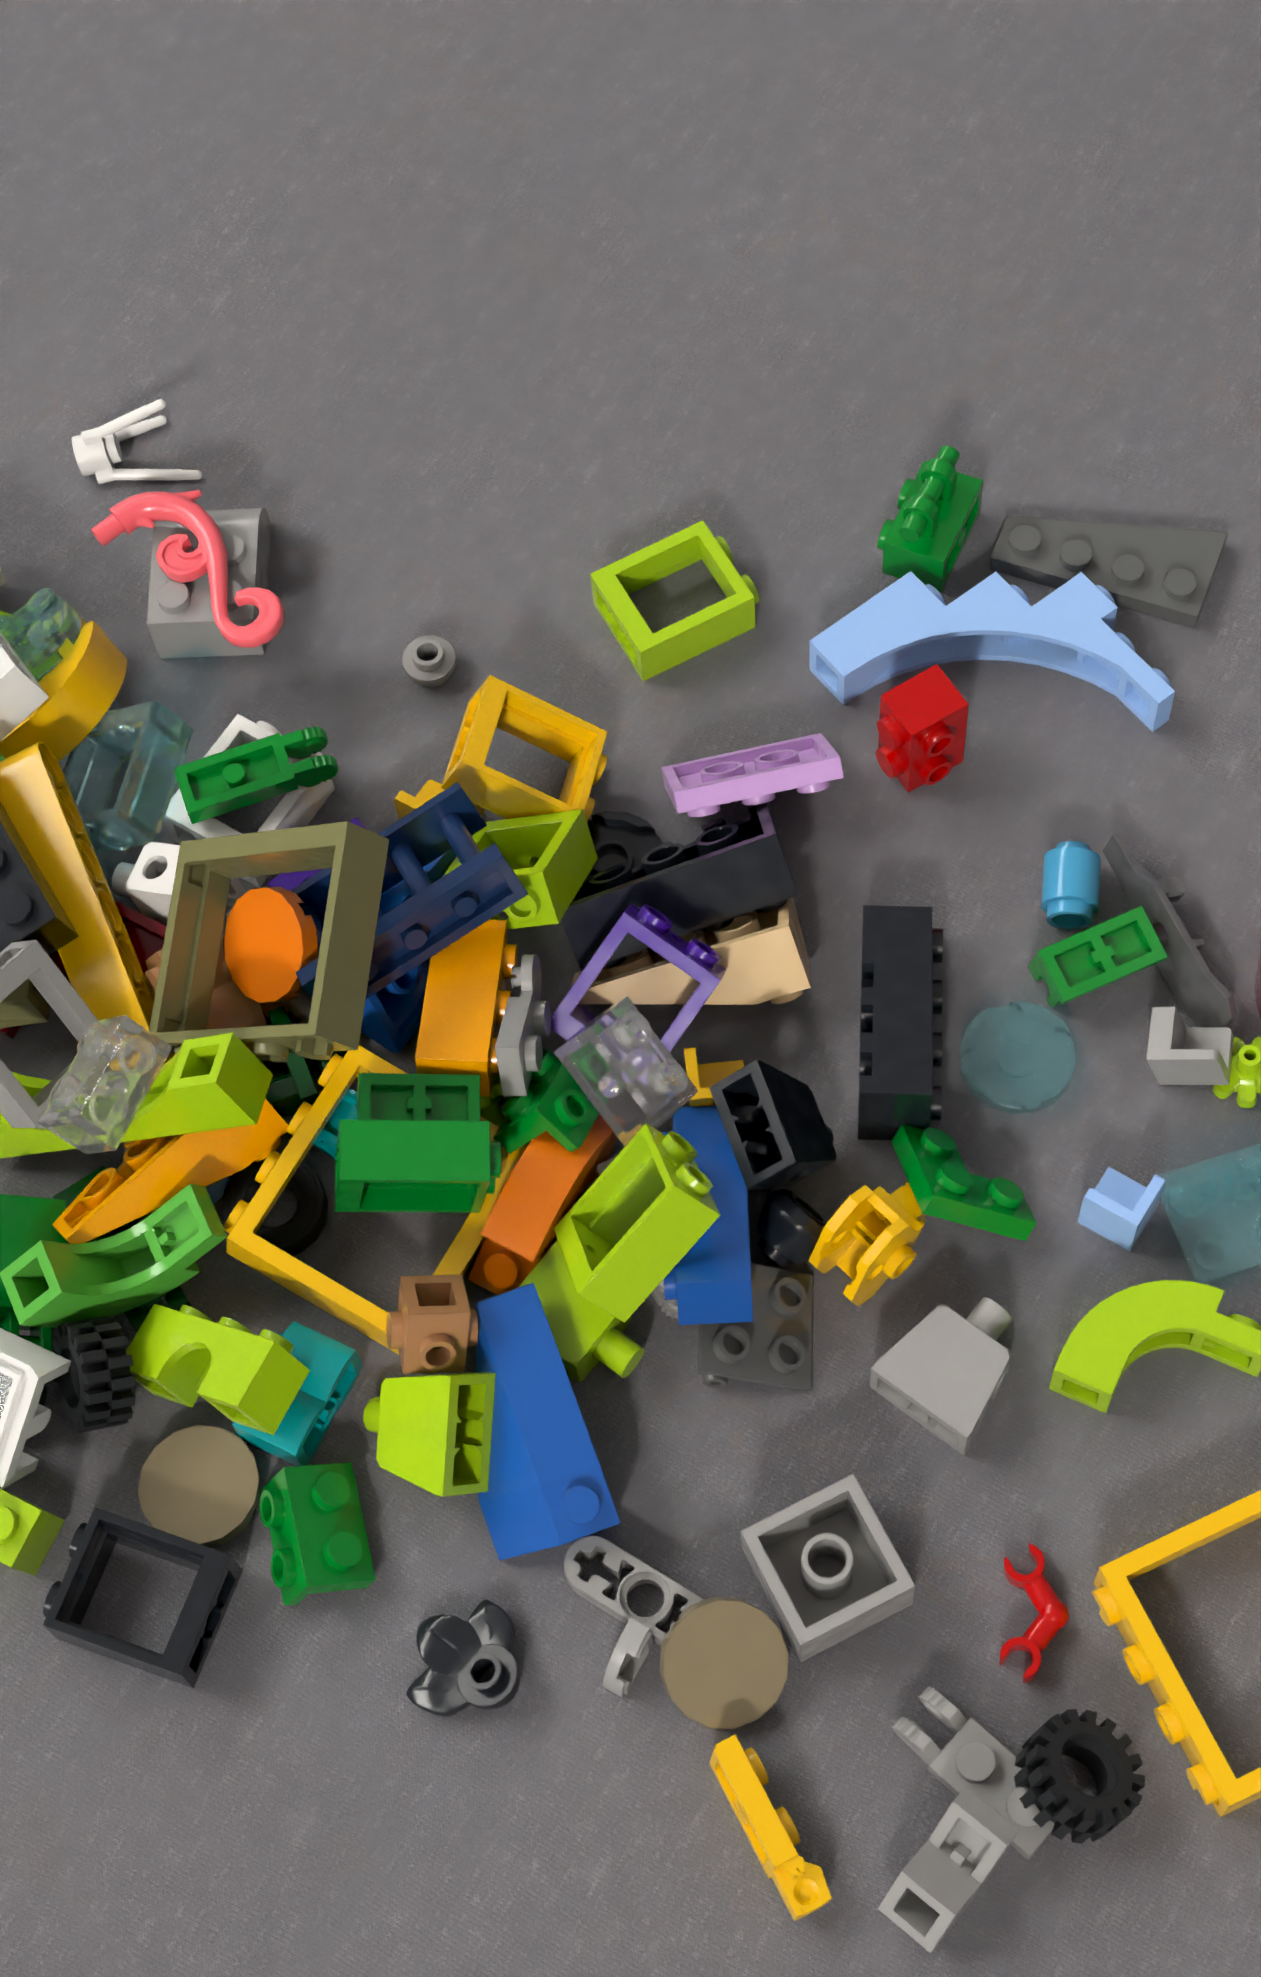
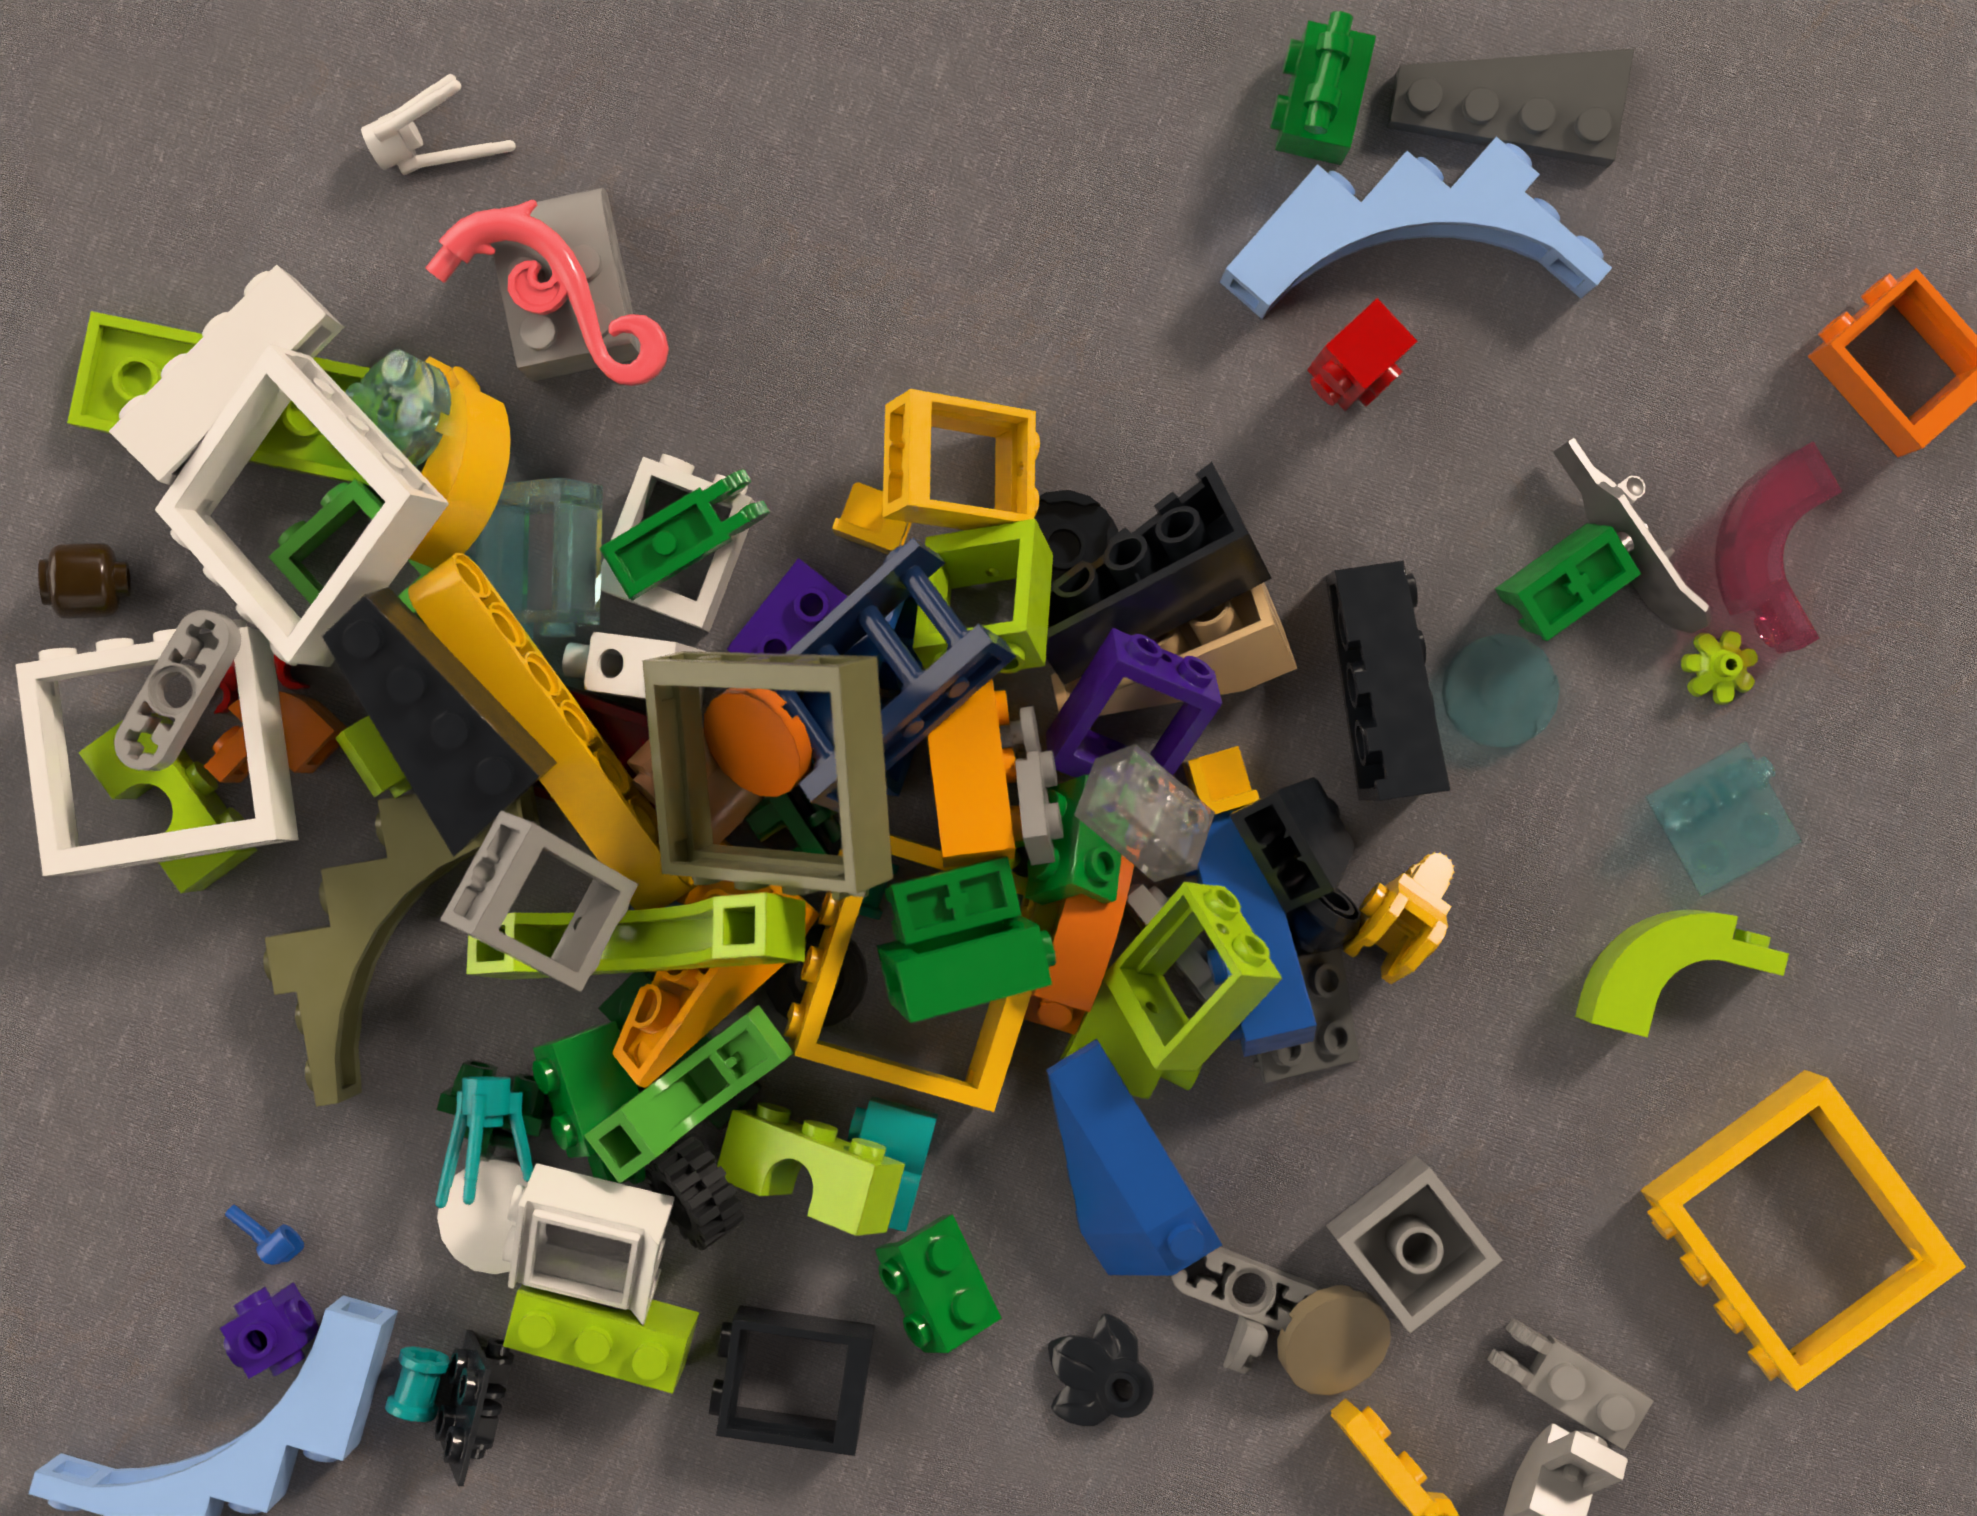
camera: 20 degrees left, 25 degrees up
(104, 1084) = (639, 942): clear brick -> none
(200, 1485) = (814, 1266): dark tan tile -> none
(432, 672) = (828, 359): light grey plate -> none
(432, 1324) = (1013, 1105): medium nougat brick -> none
(435, 1430) = (1030, 1186): lime torso -> none
(691, 636) = (1026, 269): lime window -> none
(752, 775) = (1193, 434): lavender plate -> none
(947, 1371) = (1489, 1028): light grey torso -> none
(952, 1193) = (1465, 860): green plate -> none
(1051, 1616) = (1610, 1235): red arm -> none
(1058, 1797) = (1688, 1377): black tyre -> none
(1070, 885) = (1529, 498): dark azure brick -> none
(1120, 1207) = (1625, 834): light blue panel -> none
(1188, 1054) = (1670, 662): light grey panel -> none

